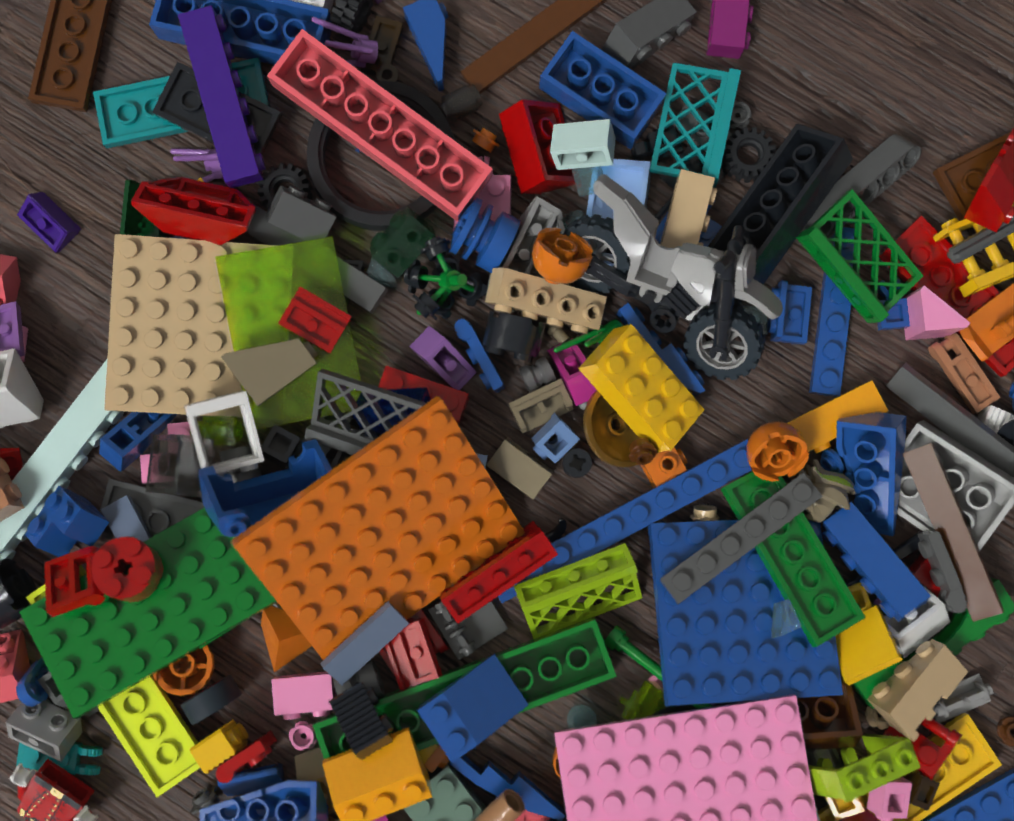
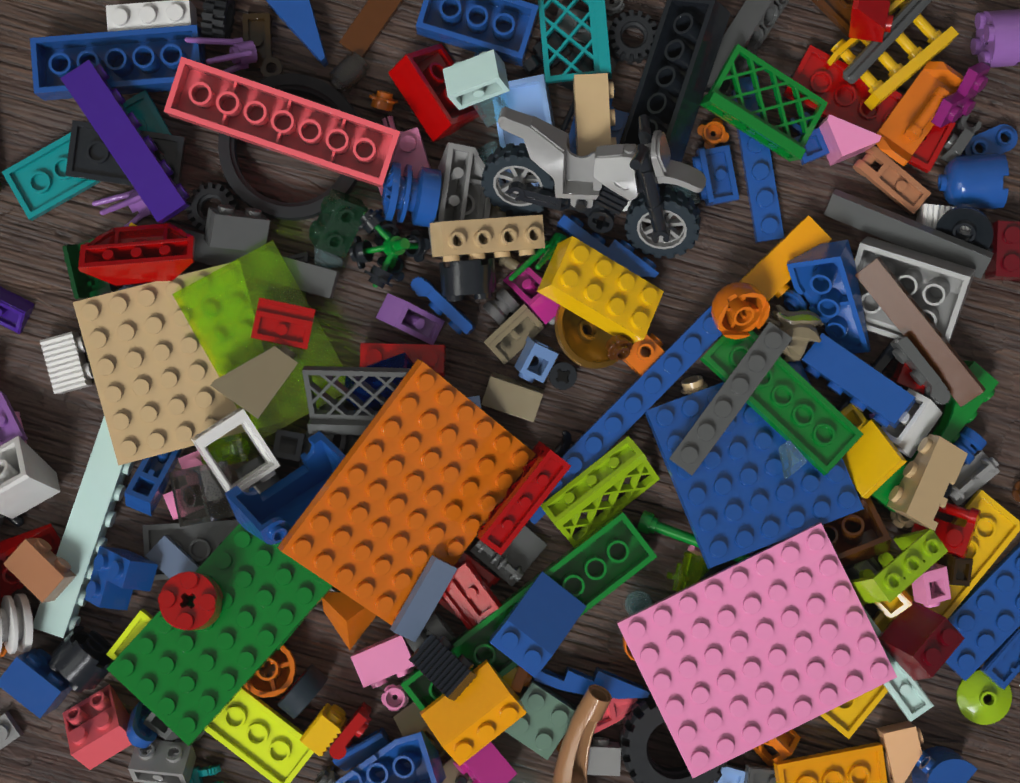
camera: 10 degrees left, 5 degrees up
(63, 582) = (138, 631): red plate -> none
(90, 294) = (67, 362): none -> white brick
(561, 257) = (489, 194): orange cylinder -> none
(804, 266) = (716, 126): none -> orange plate
(971, 660) = (970, 443): none -> blue wheel

